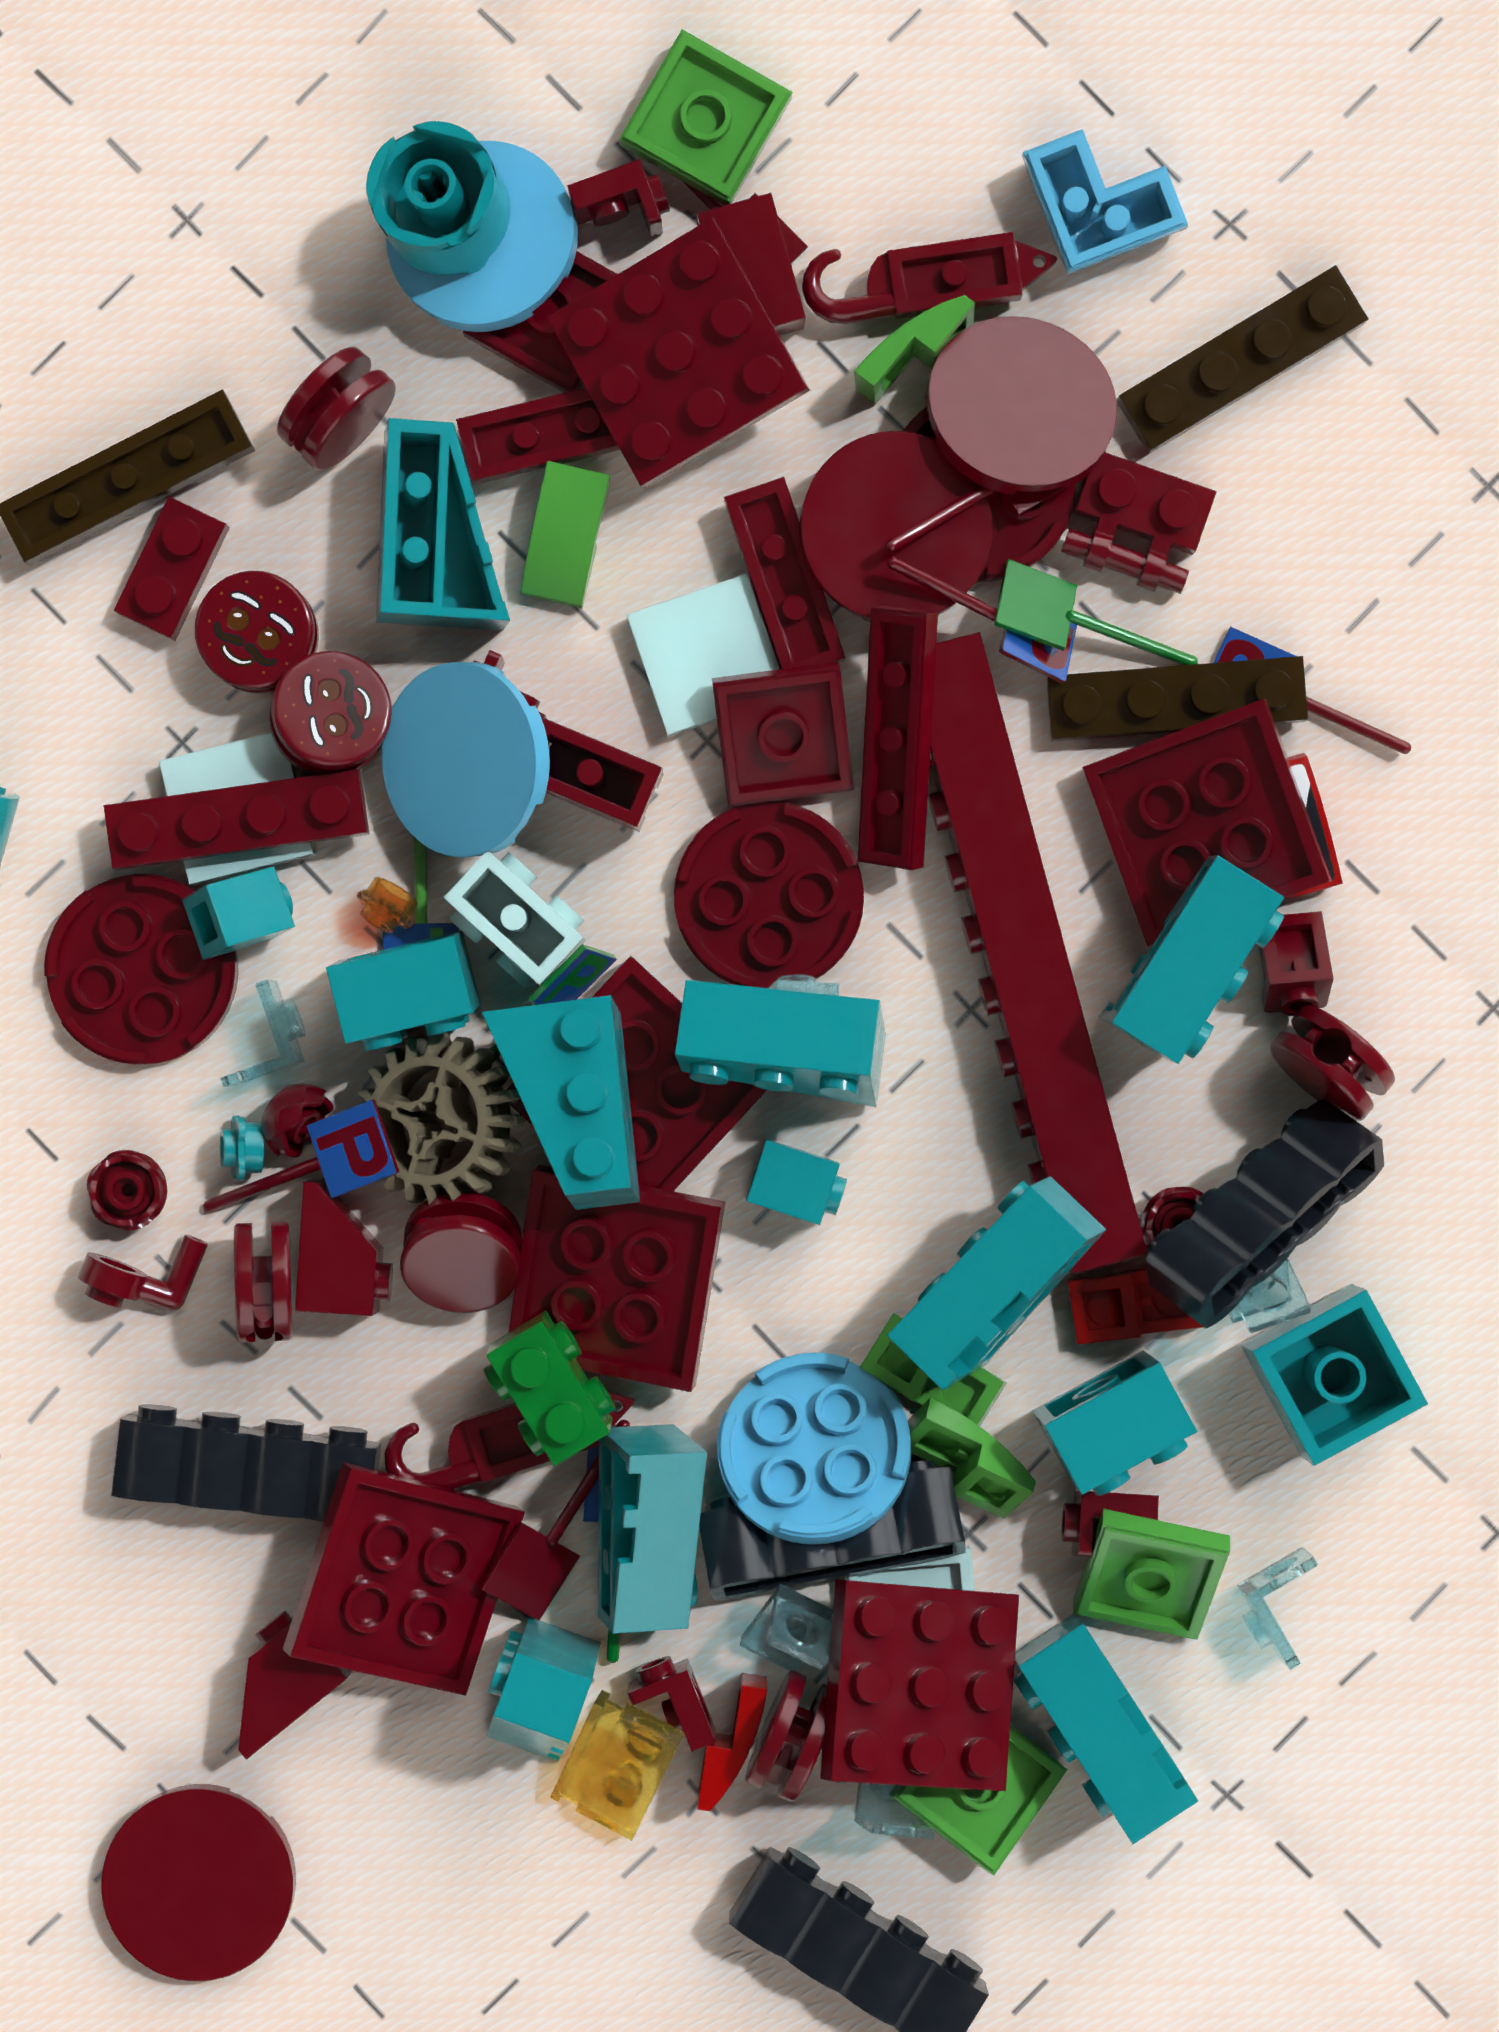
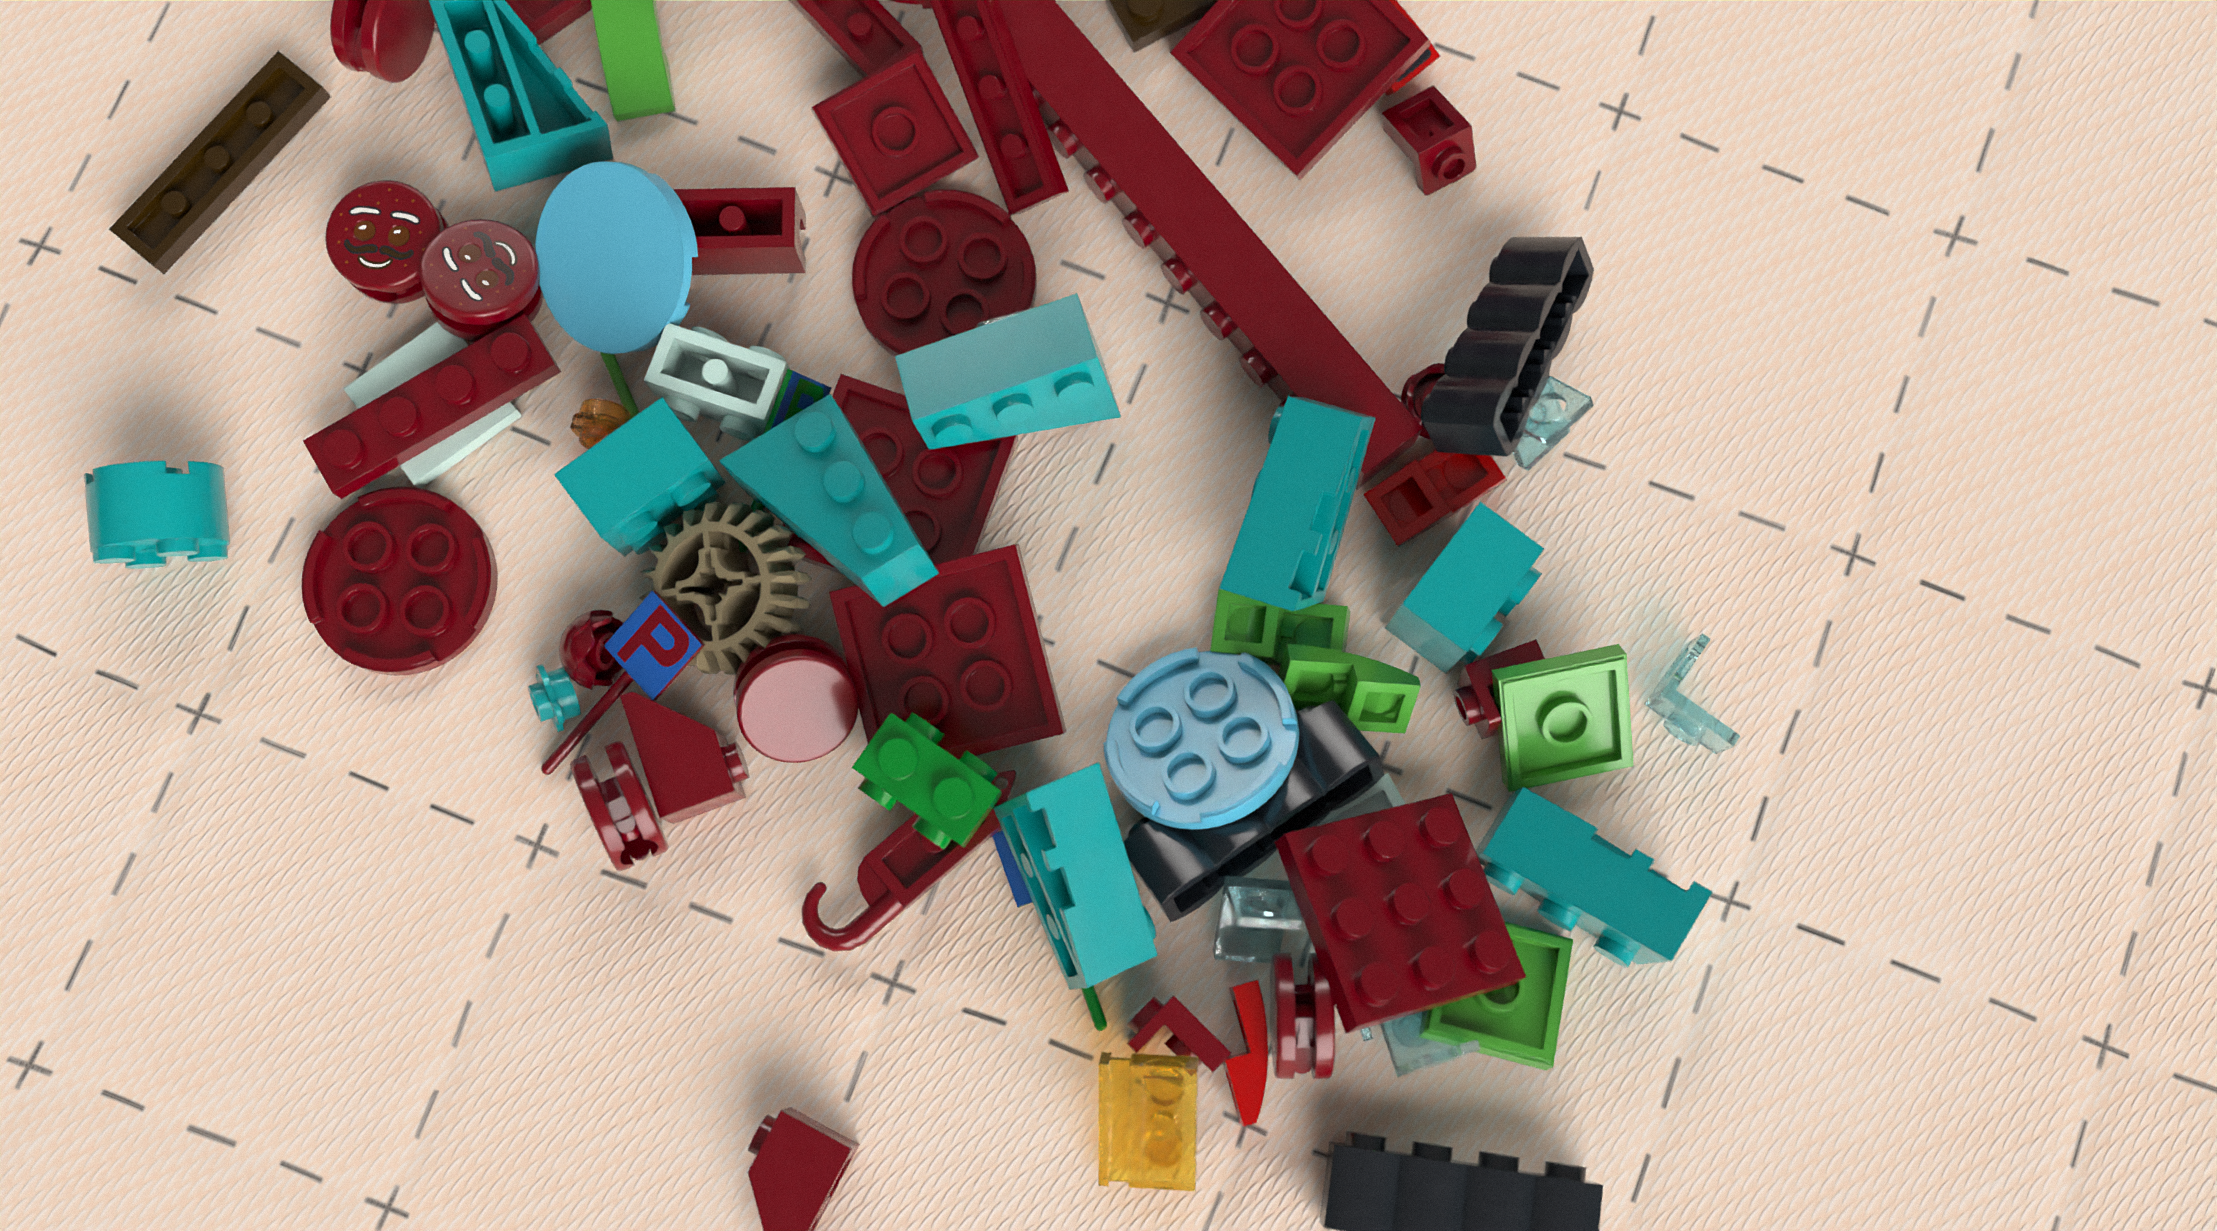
camera: 20 degrees left, 10 degrees down
(107, 1196) = (441, 778): dark red plate -> none
(114, 1281) = (480, 871): dark red plate -> none
(171, 568) = (293, 224): dark red plate -> none
(234, 1465) = (674, 993): black brick -> none
(239, 912) = (465, 483): teal brick -> none
(286, 1029) = (556, 605): clear light blue bracket -> none
(401, 1580) = (866, 1029): dark red plate -> none
(535, 1564) = (986, 967): dark red piece -> none
(541, 1687) = (1042, 1084): teal wedge -> none
(700, 639) = (777, 94): light aqua tile -> none
(796, 1182) = (1077, 509): teal brick -> none
(1196, 960) = (1343, 156): teal wedge -> none
(1332, 1062) = (1505, 195): dark red head -> none
(1334, 1374) = (1640, 465): teal brick -> none

